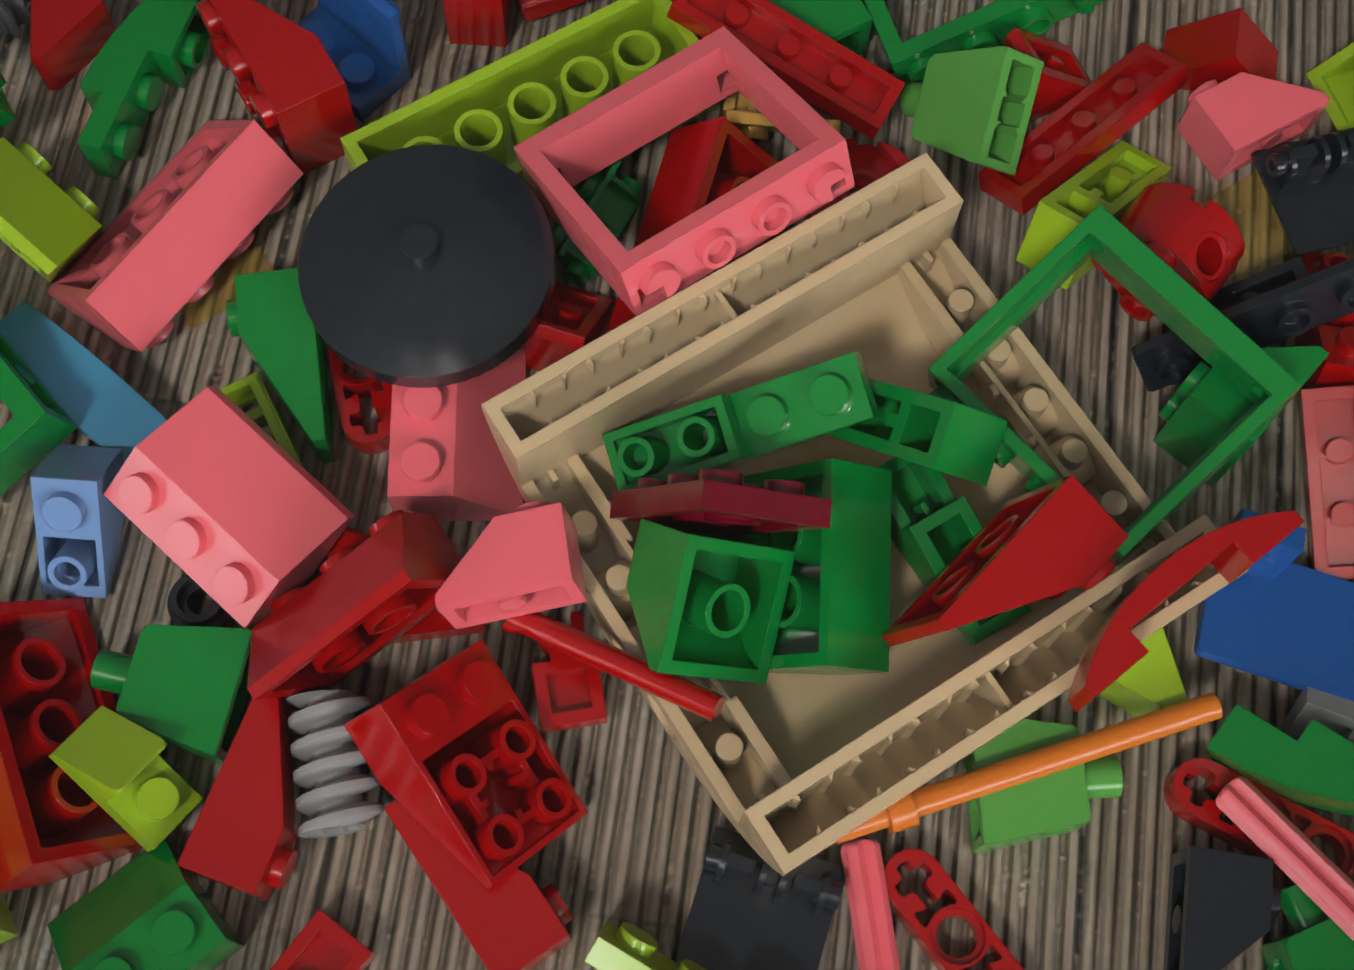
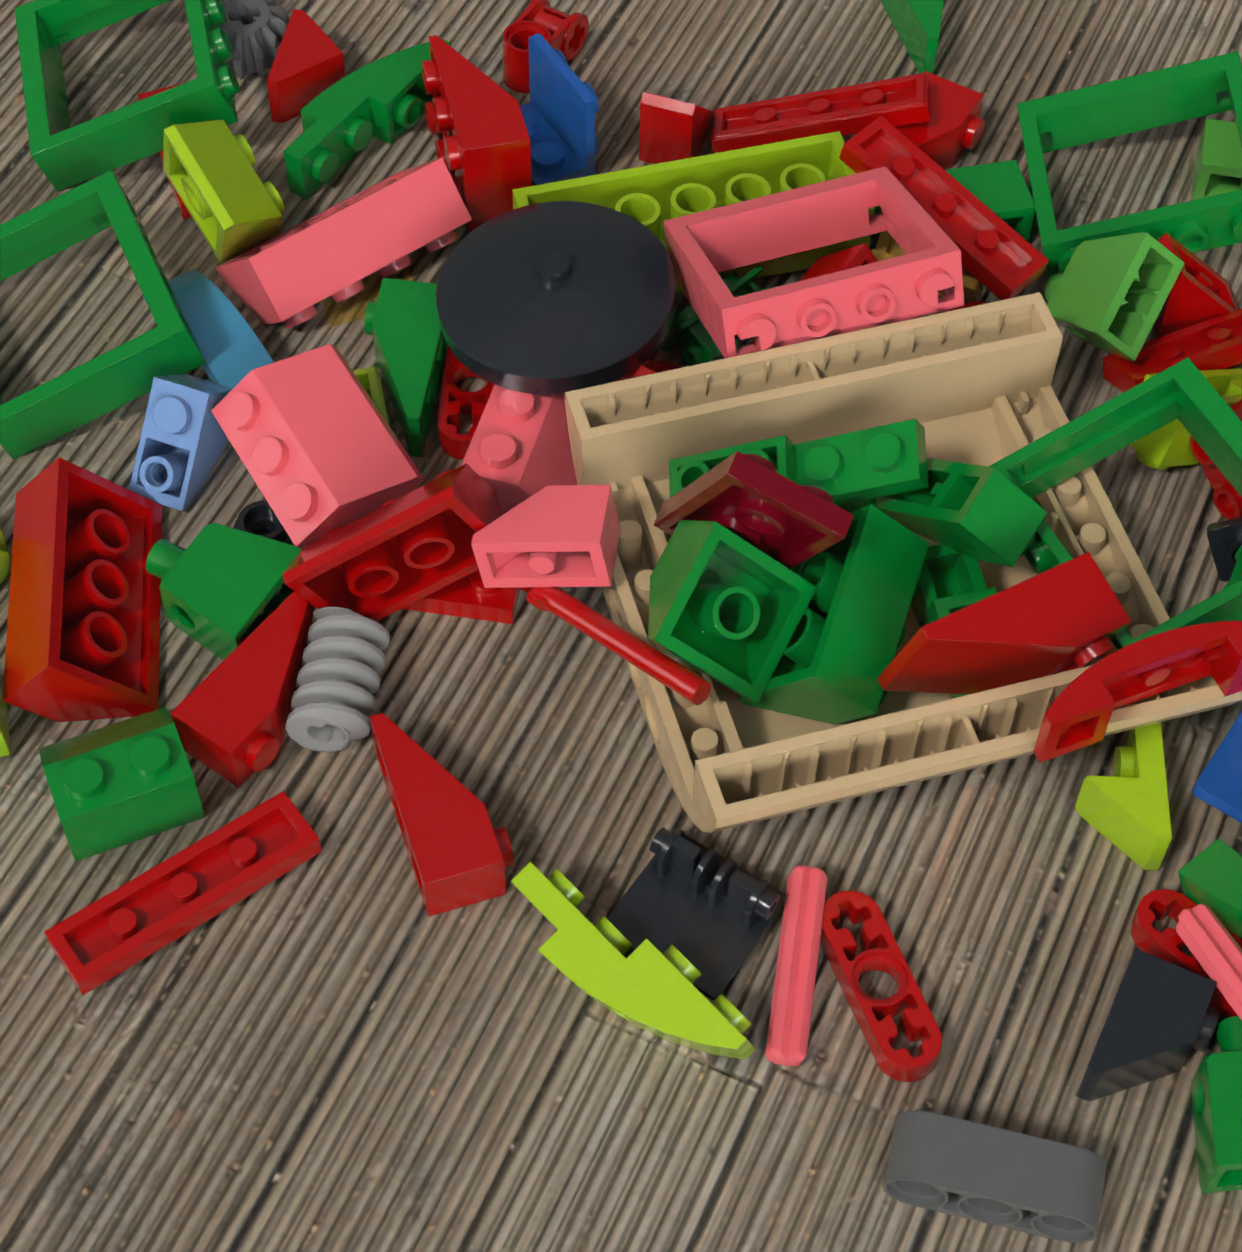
camera: 20 degrees right, 15 degrees down
(126, 776) = (149, 637): lime slope -> none
(469, 764) = (458, 695): red slope -> none
(567, 689) = (572, 676): red plate -> none
(1041, 763) = (854, 837): orange bar -> none
(1041, 806) = (994, 866): bright green torso -> none

